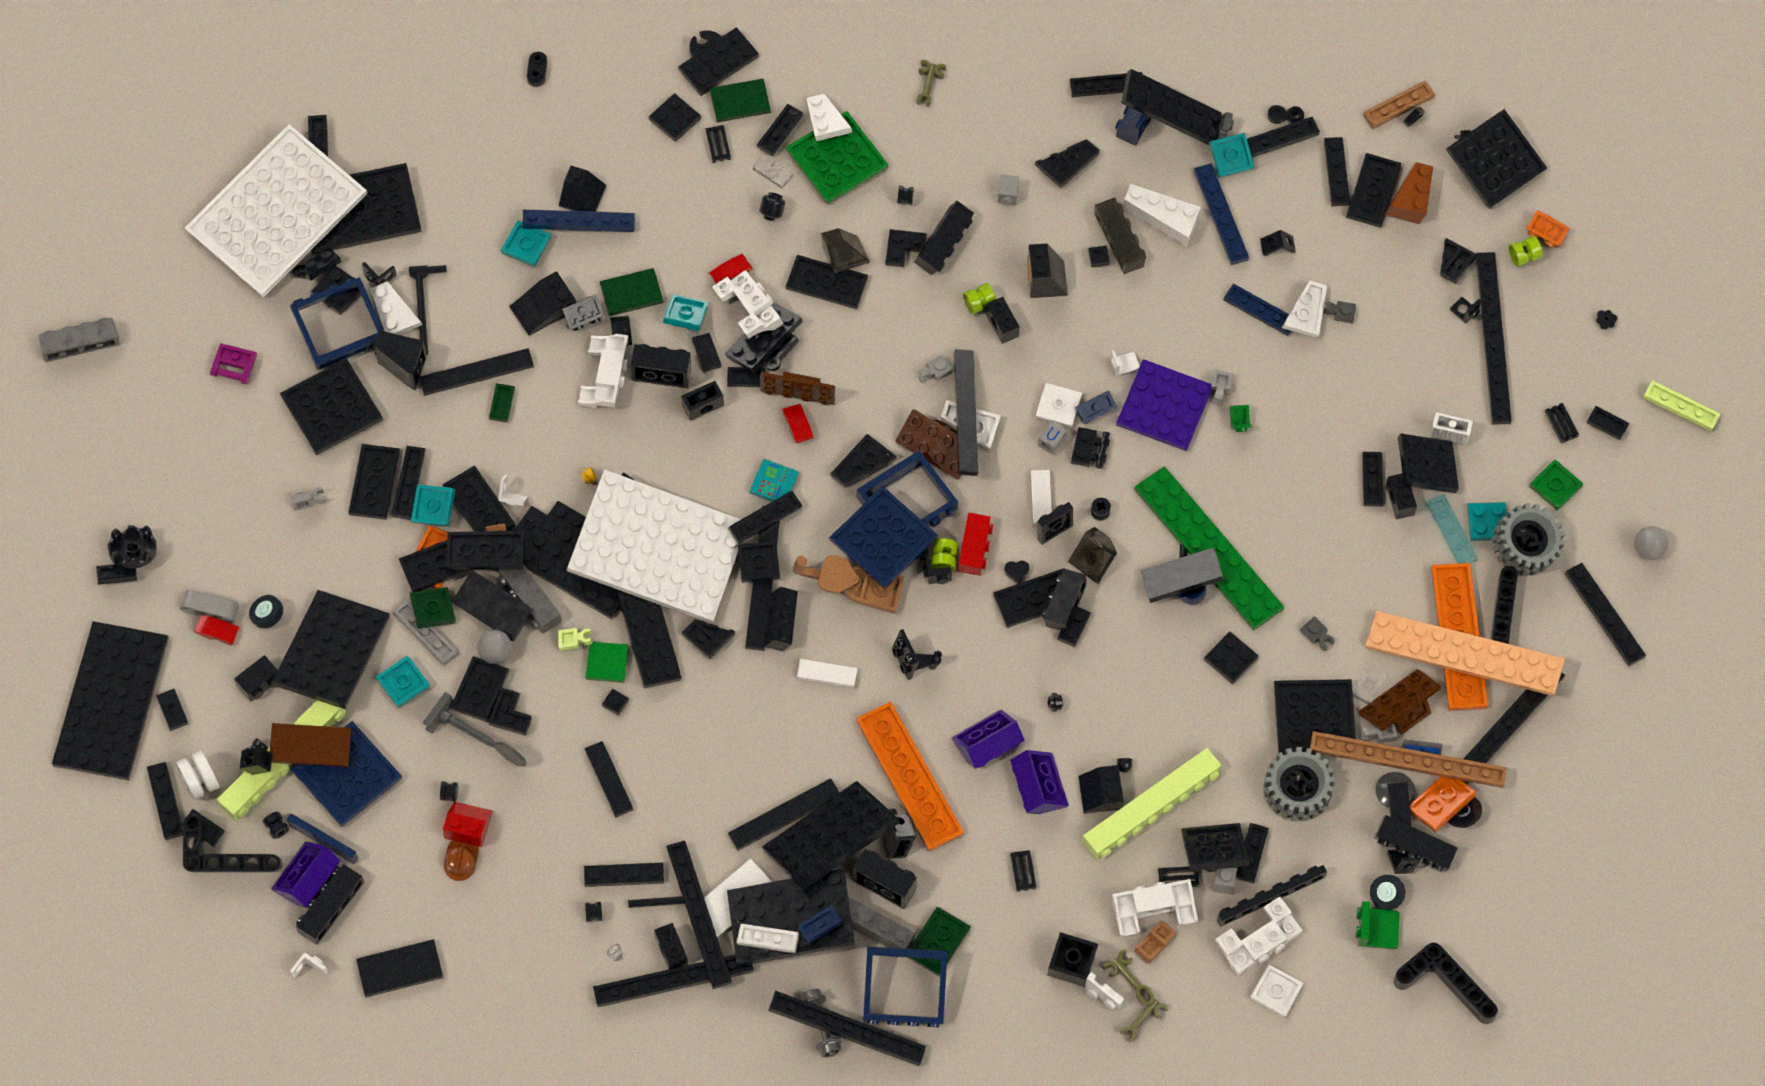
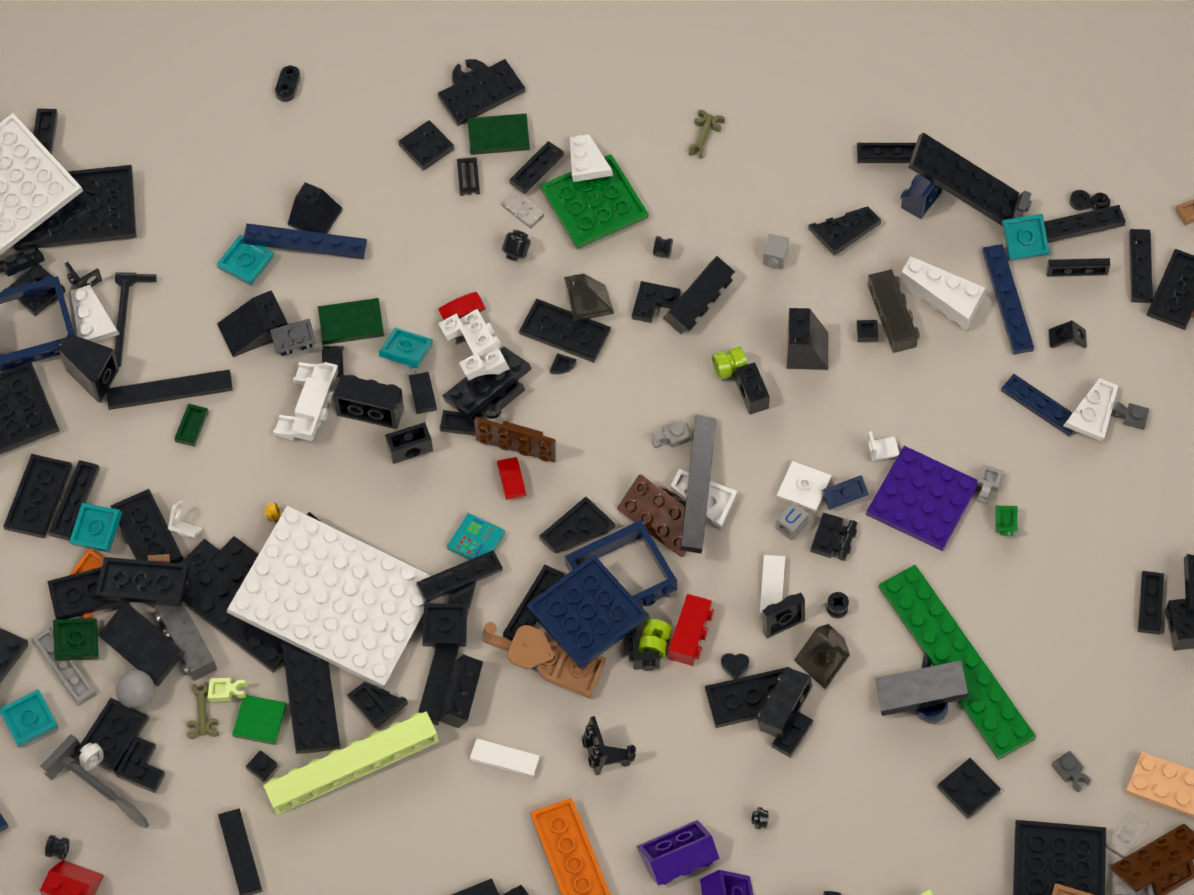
camera: 10 degrees right, 5 degrees down
(467, 709) = (90, 756): none -> white plate
(557, 672) = (203, 726): none -> olive bar
(694, 691) = (351, 762): none -> yellowish green brick
(828, 314) = (562, 364): none -> black tile
(841, 513) = (546, 578): none -> black plate
(1281, 179) = (1078, 267): none -> black tile

